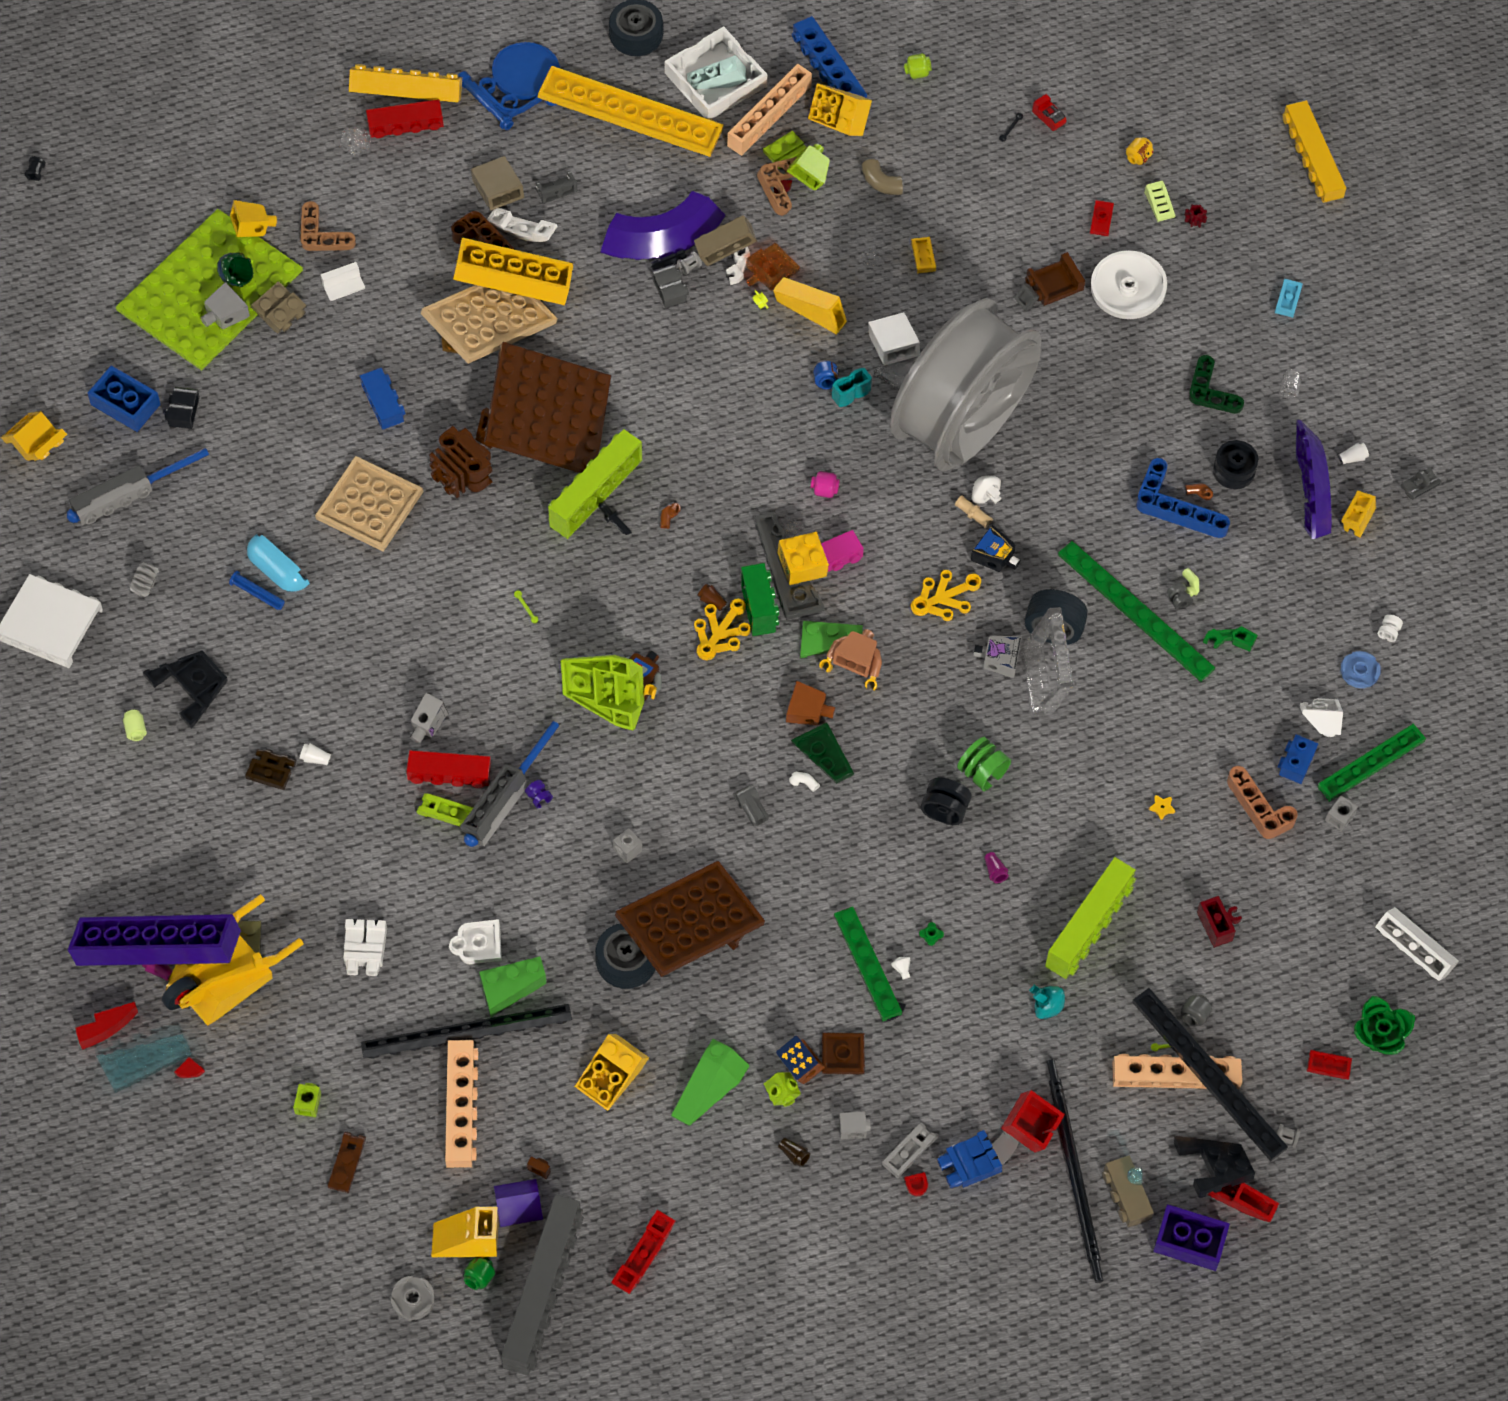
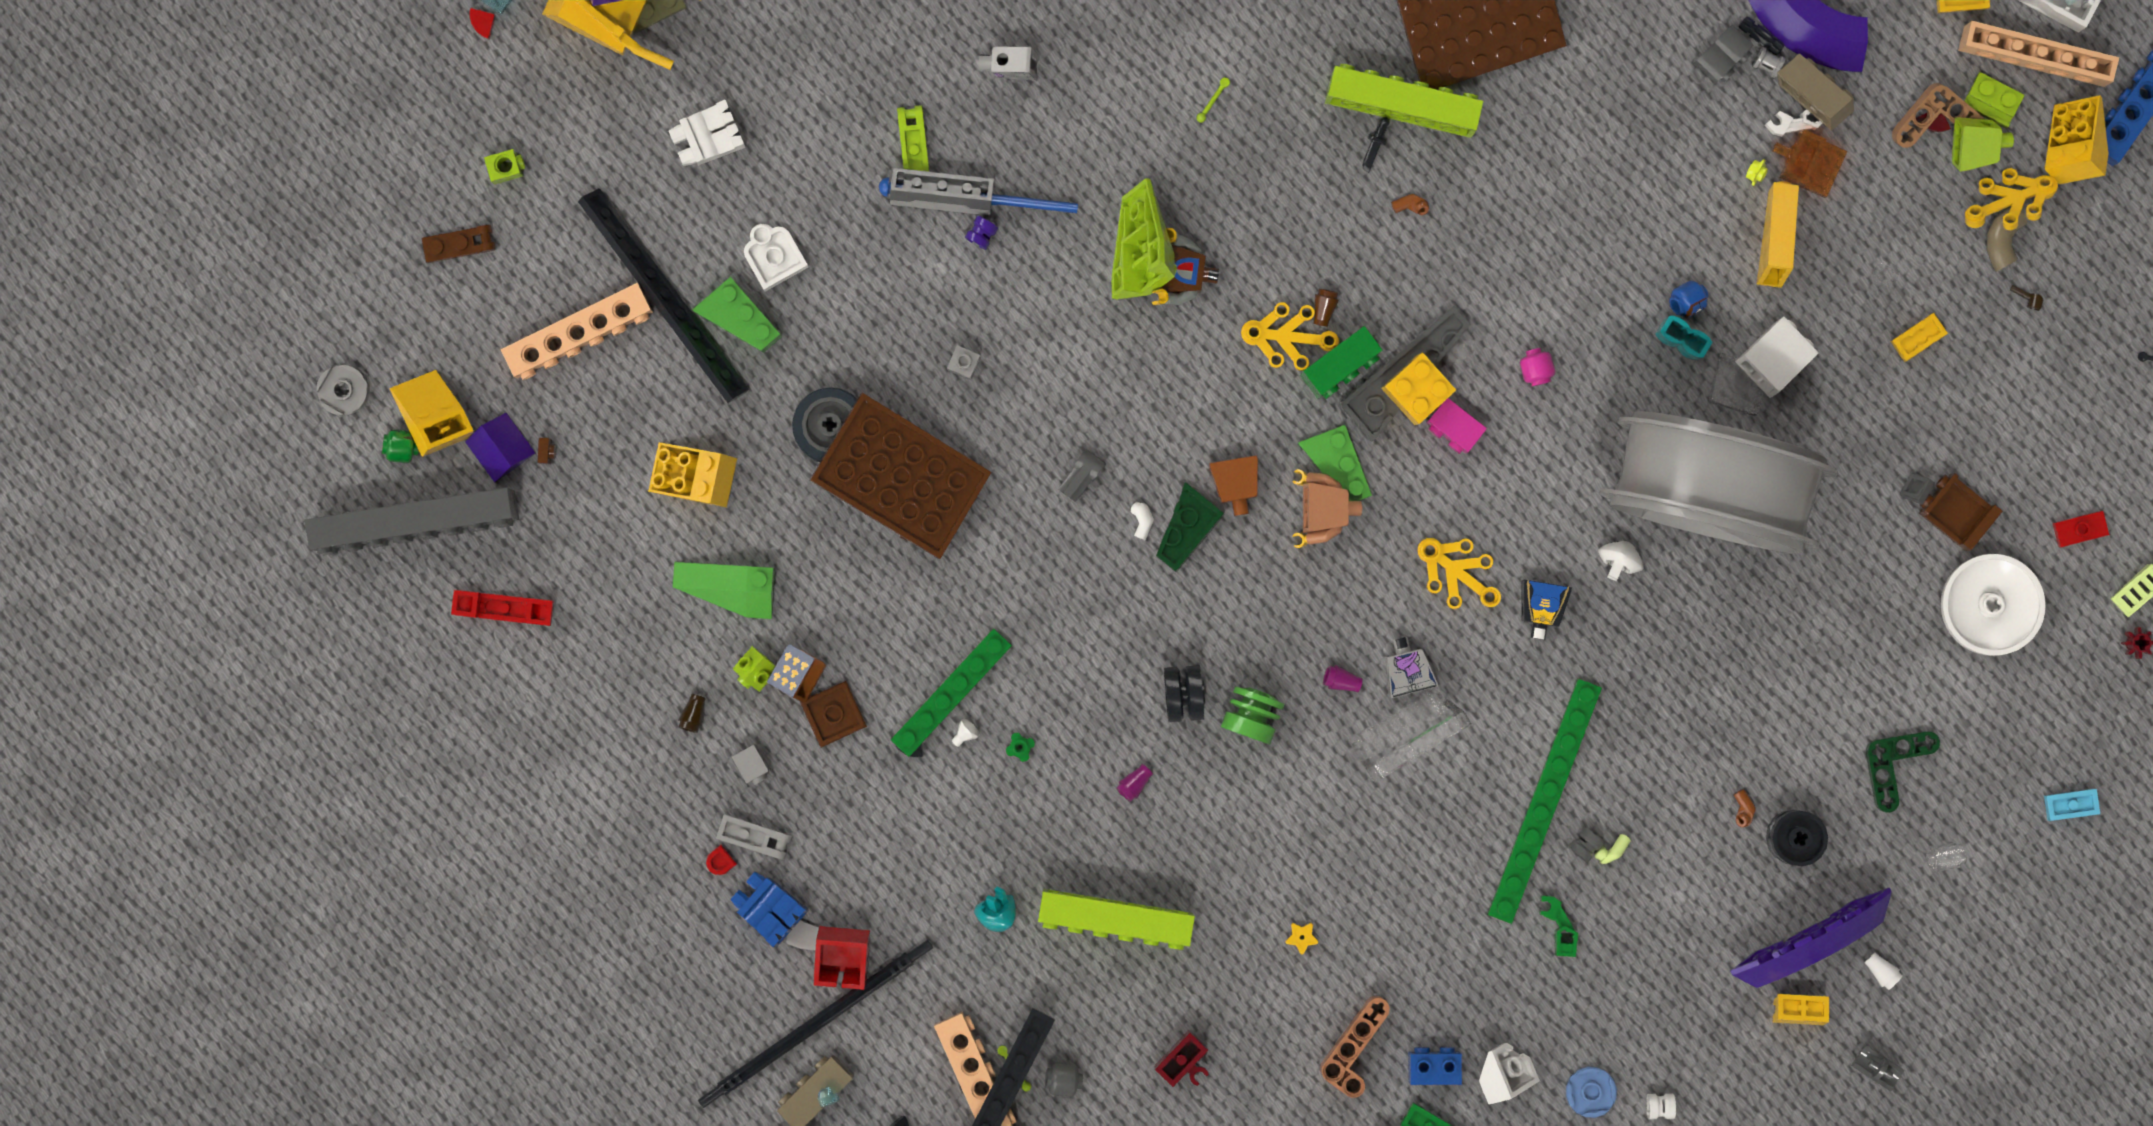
camera: 60 degrees right, 25 degrees up
(448, 768) = (964, 117): red brick -> none
(859, 144) = (2013, 198): none -> yellow plant
(933, 180) = (2035, 300): none -> dark brown hand
(973, 511) = (1585, 556): tan pin -> none
(984, 701) = (1340, 679): none -> magenta cone
(1072, 608) = (1483, 708): black wheel -> none
(1176, 506) = (1705, 788): blue beam -> none

